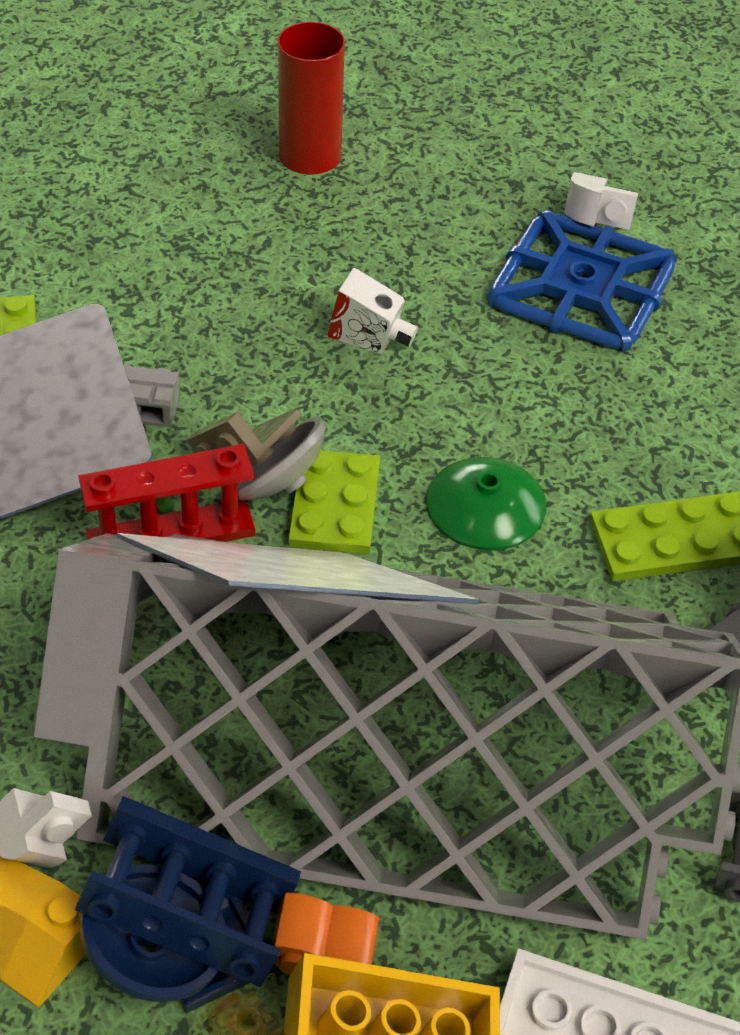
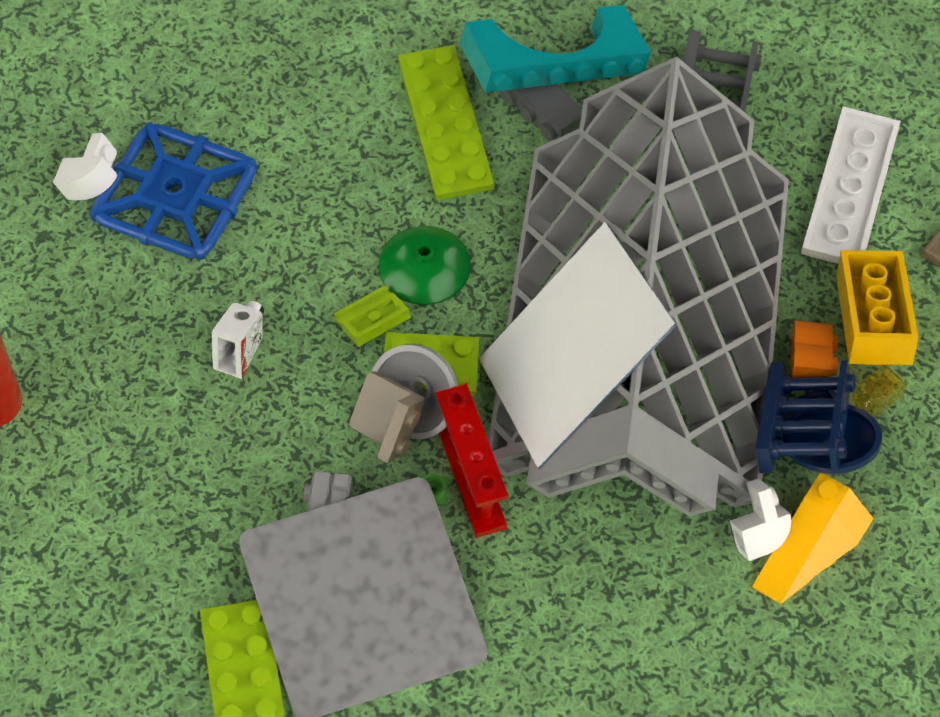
camera: 90 degrees left, 10 degrees up
(404, 443) = (372, 315): none -> lime plate

